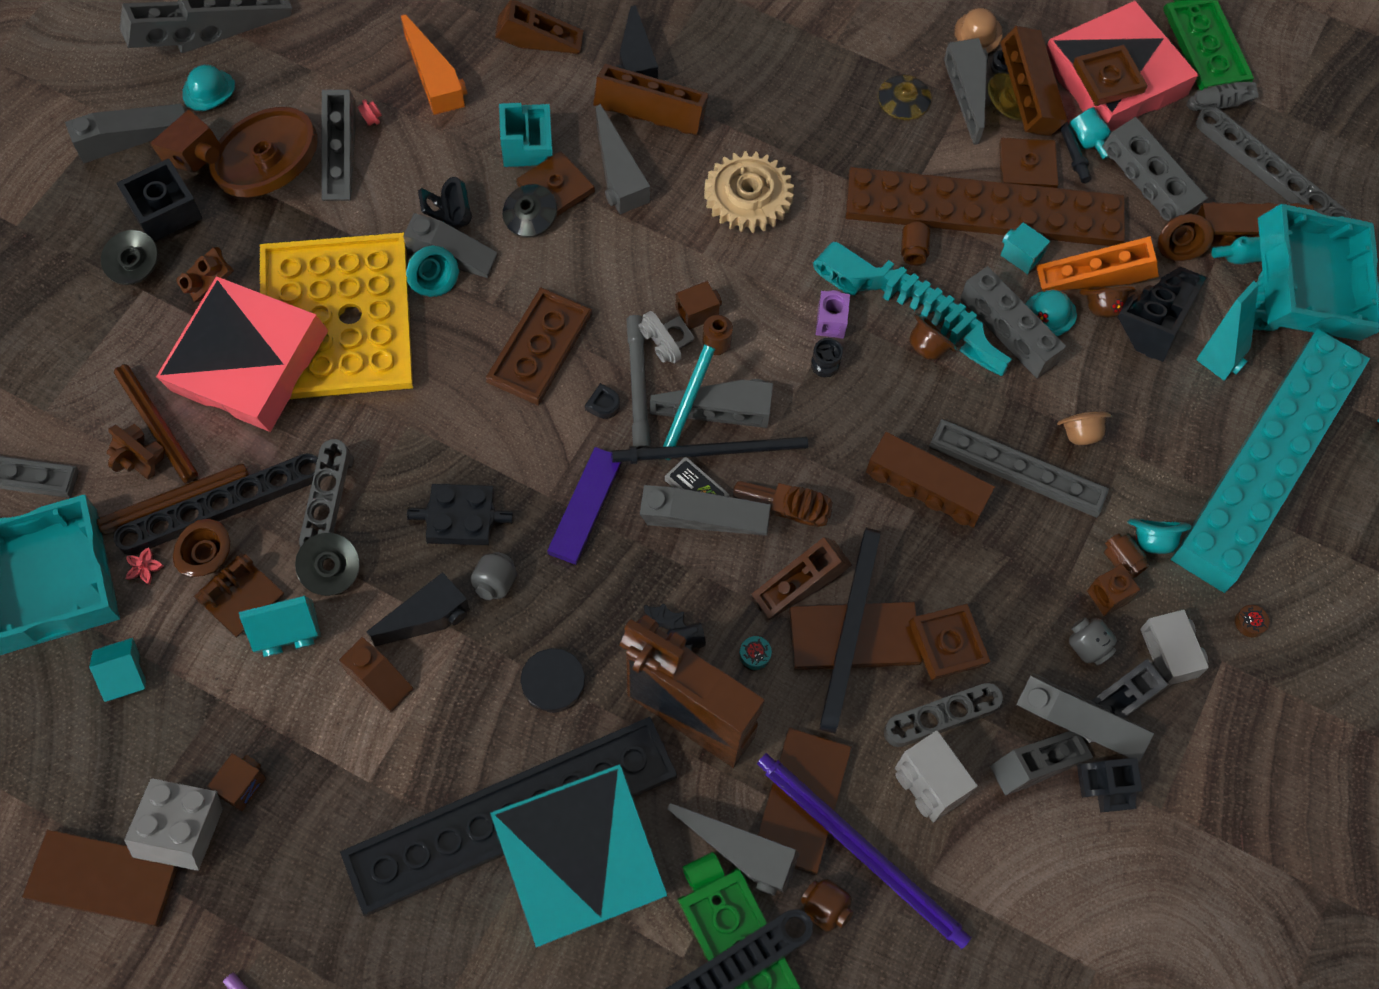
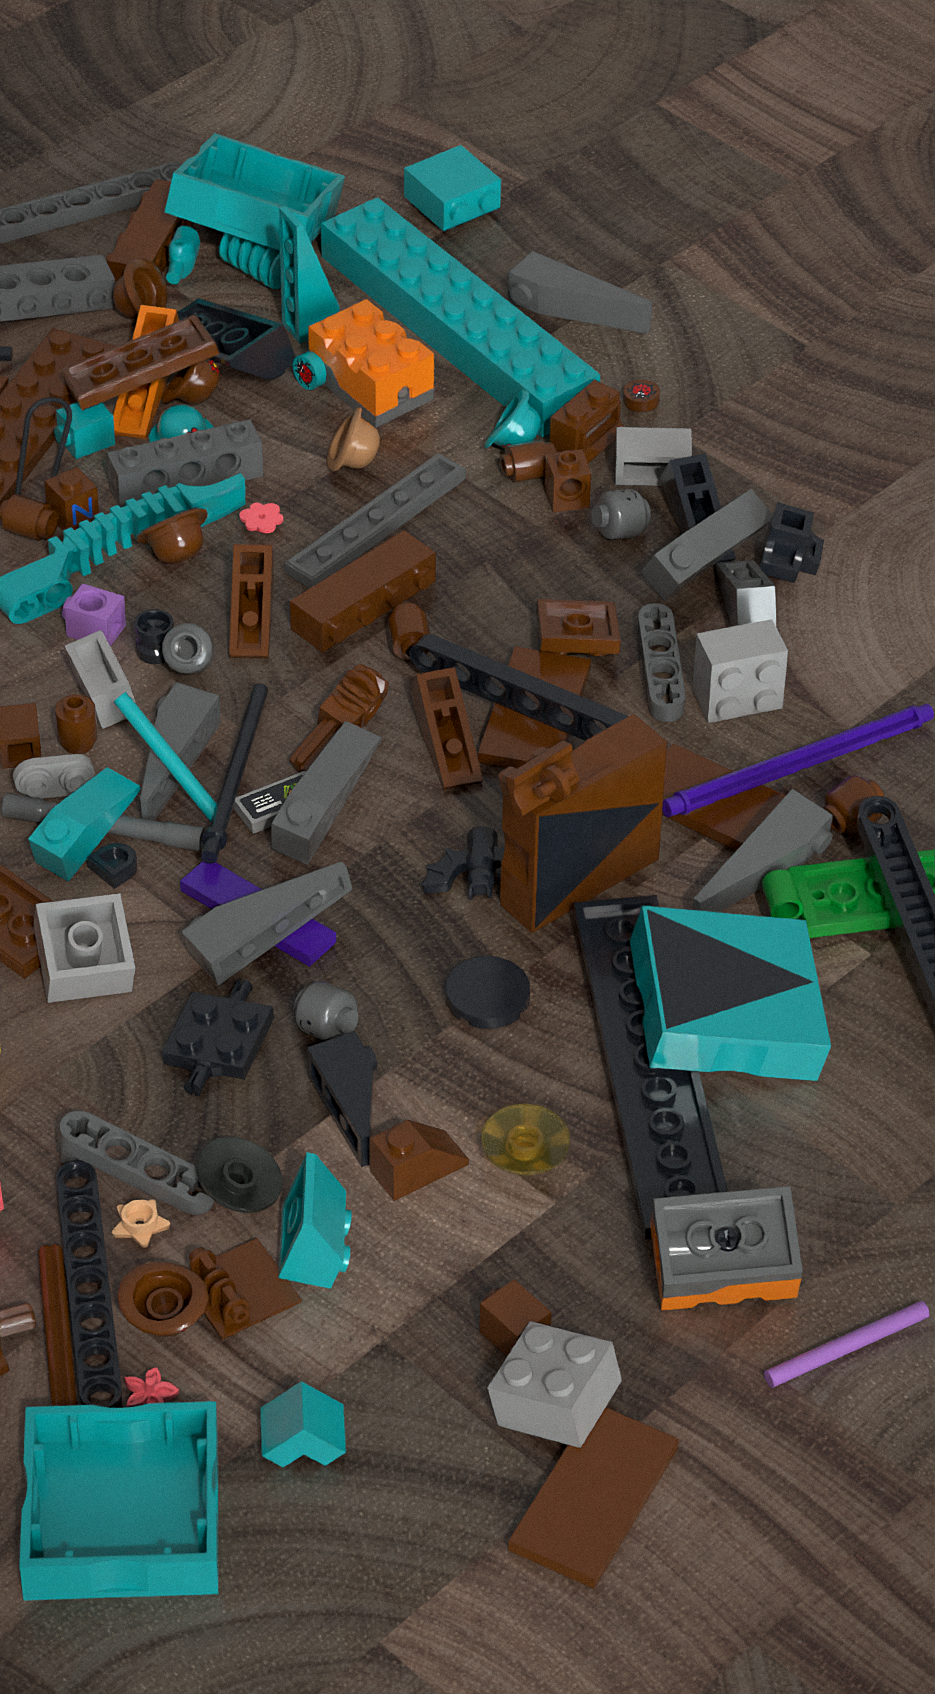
camera: 70 degrees left, 20 degrees down
(281, 511) = (139, 1211): none -> light nougat plate
(312, 915) = (726, 1247): none -> dark grey piece
(404, 729) = (525, 1139): none -> clear yellow dish
(497, 405) = (84, 948): none -> light grey brick
(544, 496) = (251, 925): none -> dark grey slope
(619, 367) = (81, 822): none -> teal slope
(762, 336) = (99, 676): none -> light grey brick
(816, 381) = (188, 649): none -> dark grey head
(886, 408) = (251, 601): none -> reddish brown slope
(898, 523) = (406, 627): none -> reddish brown brick
(941, 263) = (73, 498): none -> reddish brown brick
(983, 384) = (261, 517): none -> coral plant
(1013, 206) = (25, 438): none -> black piece
(1089, 256) = (139, 362): none -> reddish brown tile
(1158, 373) = (309, 370): none -> teal tile
(1179, 411) = (373, 363): none -> orange piece
(1188, 587) = (587, 421): none -> reddish brown window
(1342, 529) = (570, 294): none -> dark grey slope

